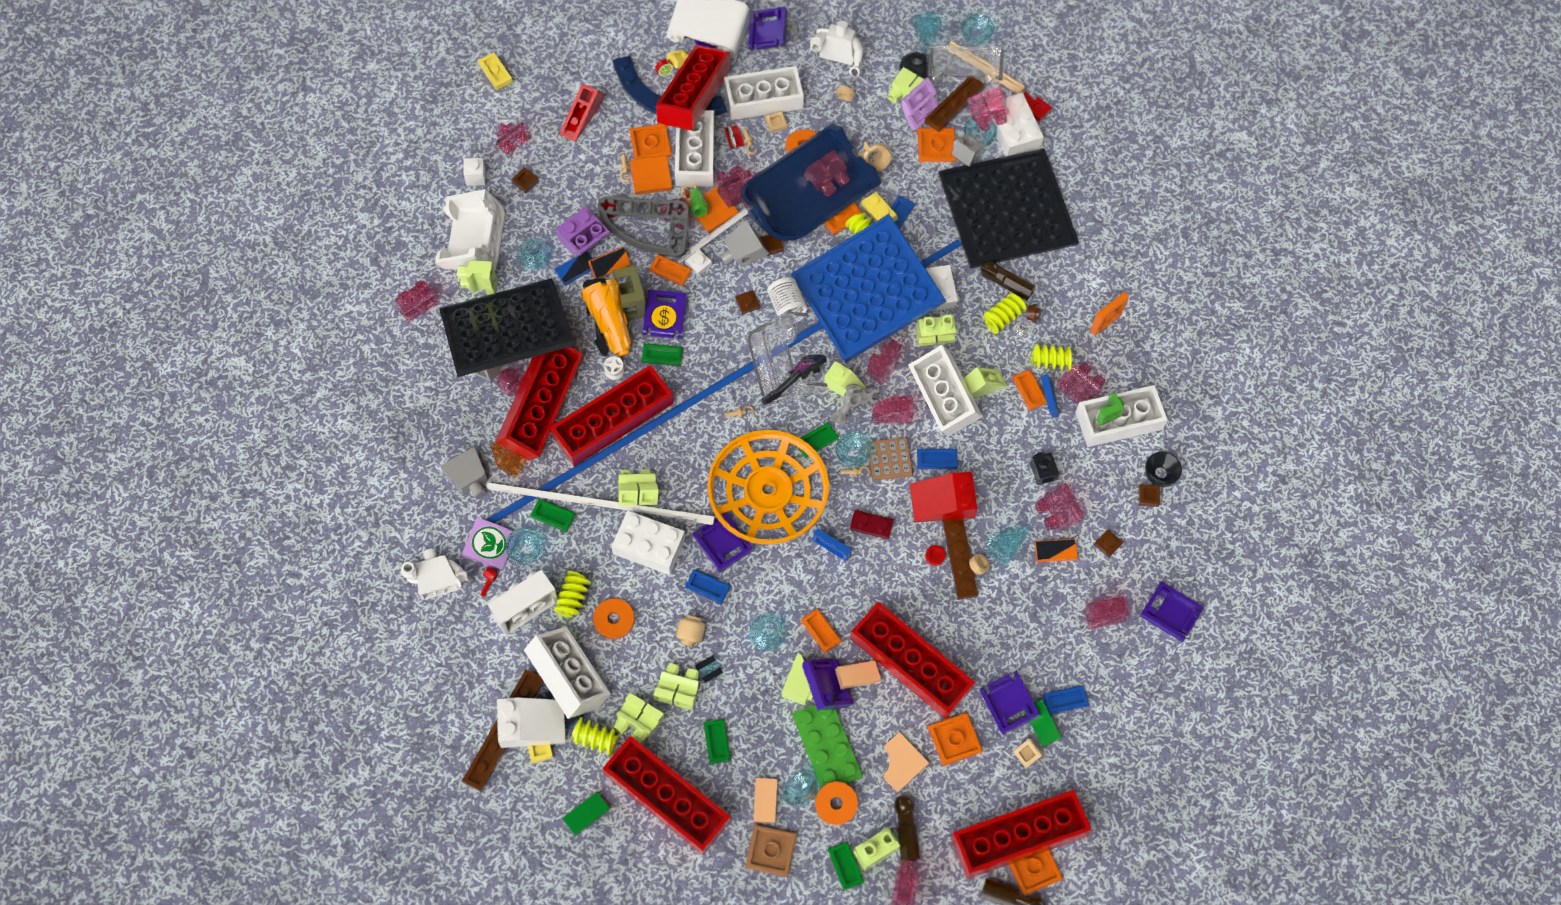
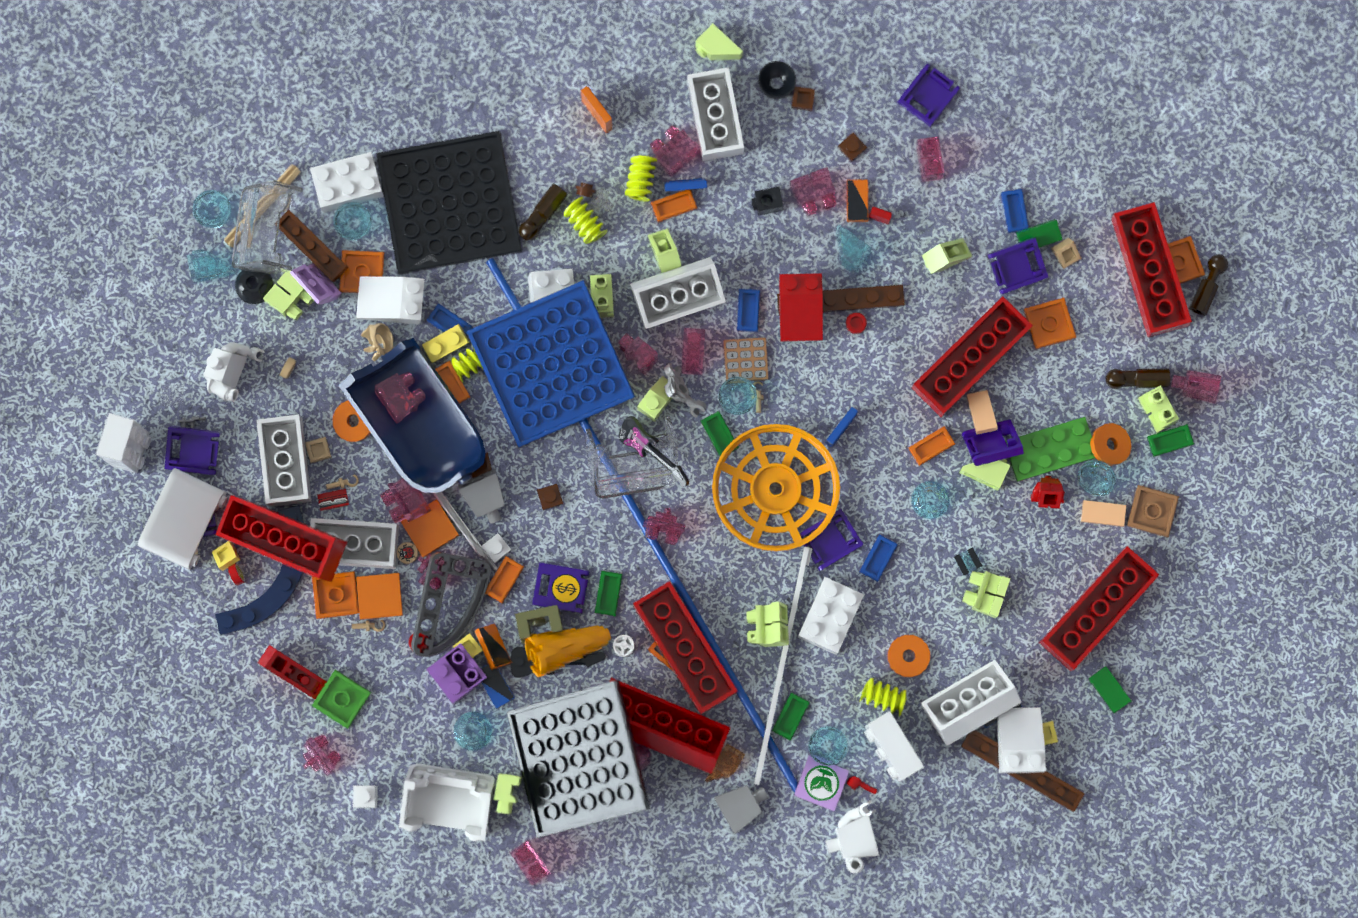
camera: 85 degrees left, 15 degrees up
(495, 71) = (225, 772): light yellow plate -> none
(525, 180) = (378, 739): reddish brown plate -> none
(560, 151) = (341, 699): none -> bright green tile
(595, 737) = (1034, 677): neon yellow piece -> none
(608, 244) = (470, 645): none -> light yellow plate
(638, 716) = (1025, 628): yellowish green hips -> none
(690, 630) = (927, 577): tan head -> none
(698, 204) = (426, 543): bright green cone -> none
(716, 741) = (1042, 557): green tile -> none
(725, 384) = (665, 523): none -> clear pink hips
(739, 412) = (682, 514): tan hand -> none
(781, 742) = (1048, 493): none -> red piece
(799, 302) = (552, 448): white piece -> none
(871, 524) = (818, 385): dark red plate -> none
(904, 762) = (1071, 375): light nougat tile -> none
(914, 166) = (390, 299): none -> white slope
(967, 149) = (371, 232): light grey brick -> none
(979, 564) = (869, 279): tan tile -> none
(989, 107) = (331, 207): clear pink hips -> none
(1012, 634) = (946, 255): none -> yellowish green slope
(1038, 107) = (322, 154): red plate -> none
(1044, 569) = (880, 215): none -> red tile
(1112, 411) = (721, 125): bright green bracket -> none
(1187, 415) = (717, 46): none -> yellowish green slope

